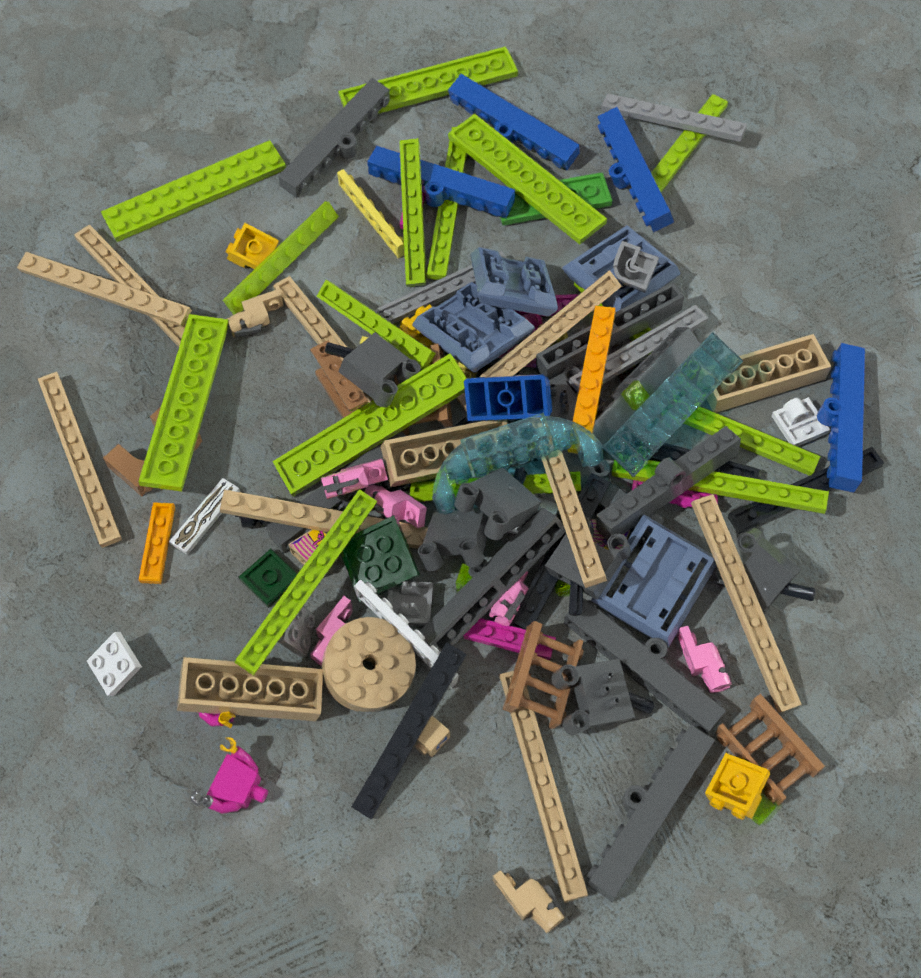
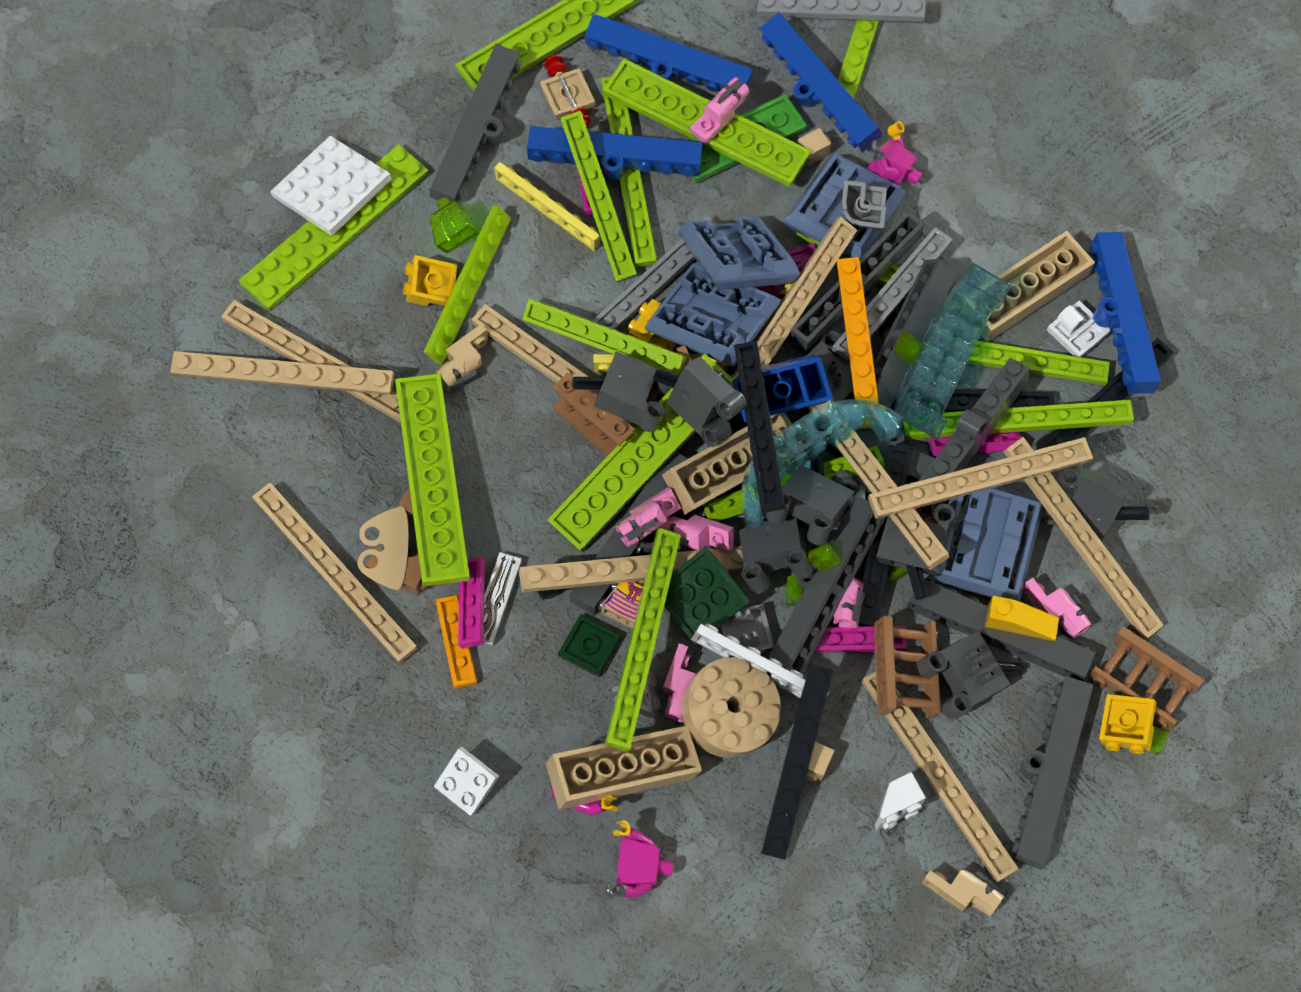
camera: 20 degrees left, 5 degrees up
(135, 440) = (393, 559): none -> tan piece
(180, 513) = (472, 605): none -> dark pink plate
(202, 157) = (331, 185): none -> white plate
(285, 209) = (451, 225): none -> clear neon green torso
(422, 127) = (566, 91): none -> tan plate
(431, 387) = (701, 396): none -> dark grey piece
(469, 422) = (759, 427): none -> black plate
(492, 796) = (900, 800): none -> white slope
(494, 552) = (824, 557): none -> clear neon green plate
(538, 168) = (720, 110): none -> bright pink plate
(542, 492) = (846, 478): none -> dark grey wheel
(616, 218) = (818, 144): none -> tan brick
(659, 518) = (979, 478): none -> tan plate
(663, 659) = (1020, 619): none -> yellow slope
(678, 242) = (893, 160): none -> dark pink torso

